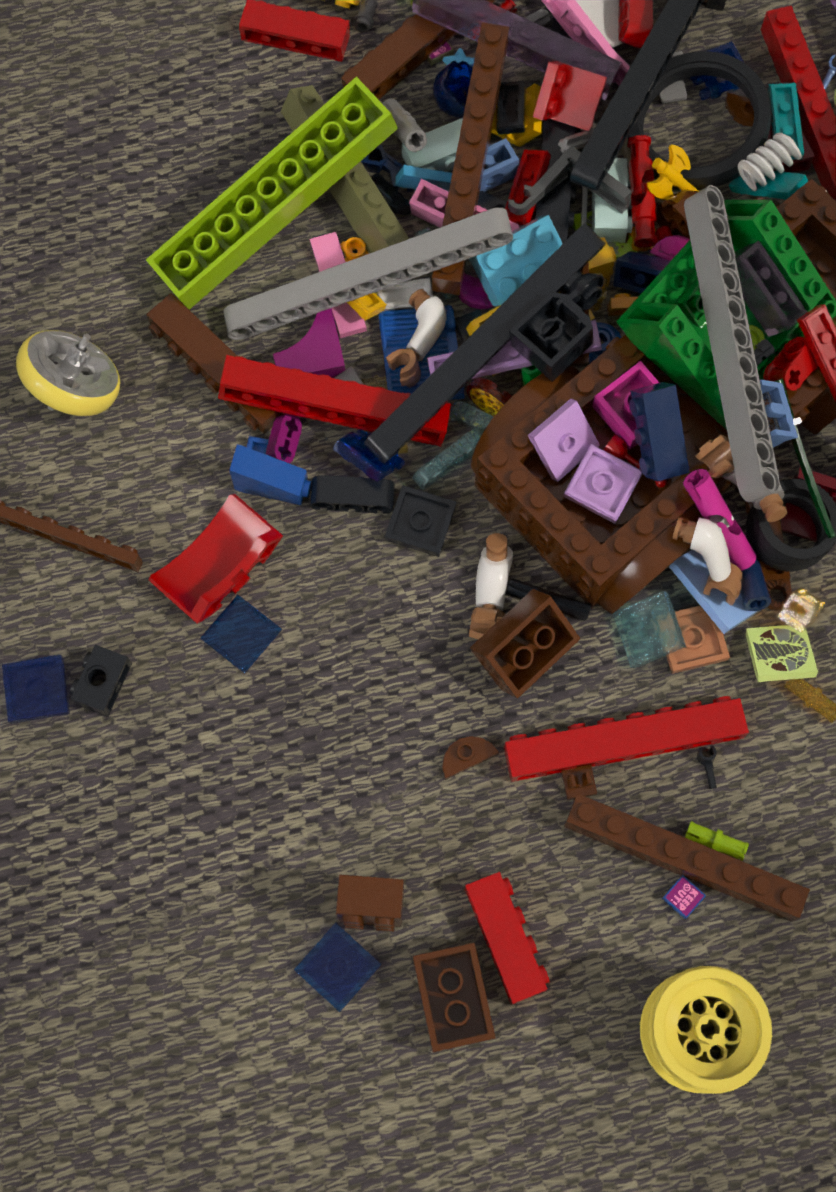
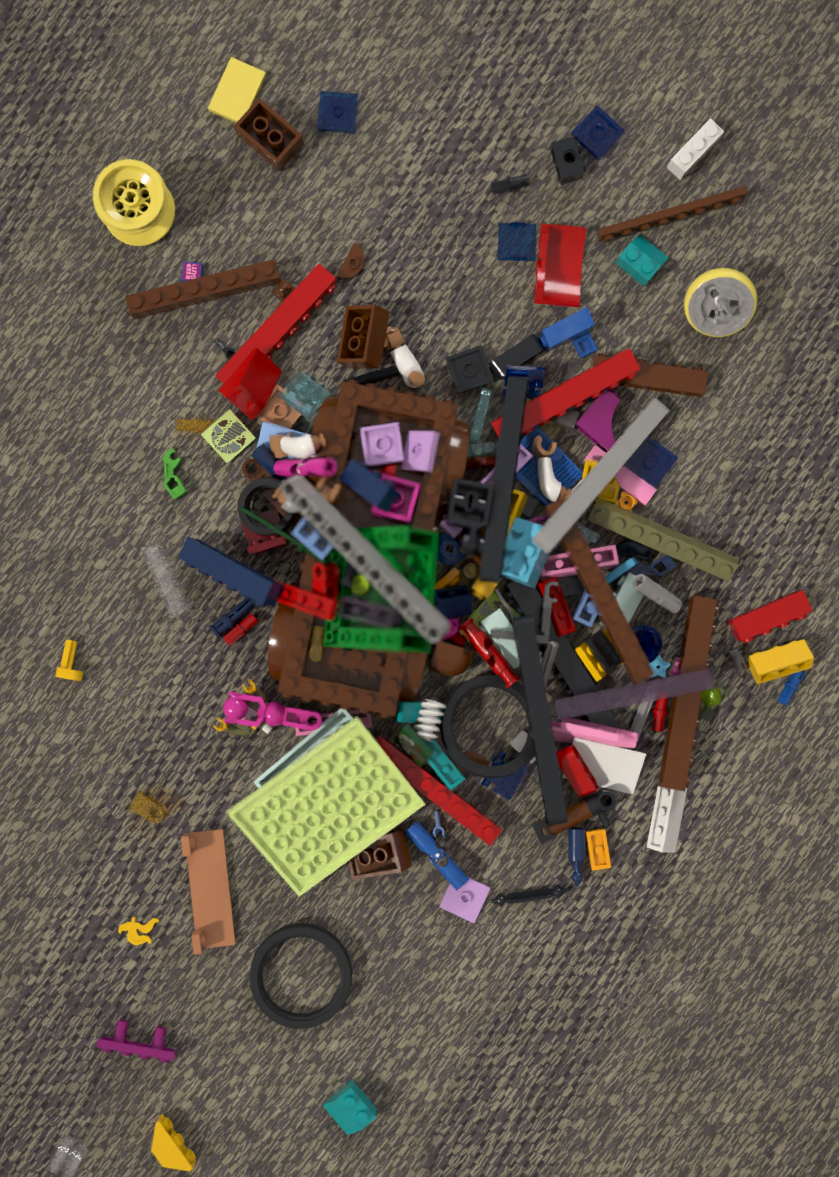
camera: 140 degrees right, 15 degrees up
(110, 498) = (641, 259): none -> teal slope
(193, 705) = (509, 184): none -> black axle
(273, 193) = (694, 489): lime brick -> none
(283, 439) = (577, 360): magenta beam -> none
(288, 264) = (651, 461): none -> clear blue plate
(370, 902) = (341, 143): reddish brown brick -> none
(450, 1100) = (236, 90): none -> light yellow tile
(505, 937) = (264, 184): red brick -> none
(569, 95) = (574, 677): red bracket -> none
(670, 173) = (479, 672): yellow piece -> none
(710, 686) = (252, 383): none -> red slope
(717, 841) = (194, 311): lime pin -> none
(801, 609) = (232, 465): clear yellow brick -> none
(807, 144) = (414, 746): none -> dark green tile

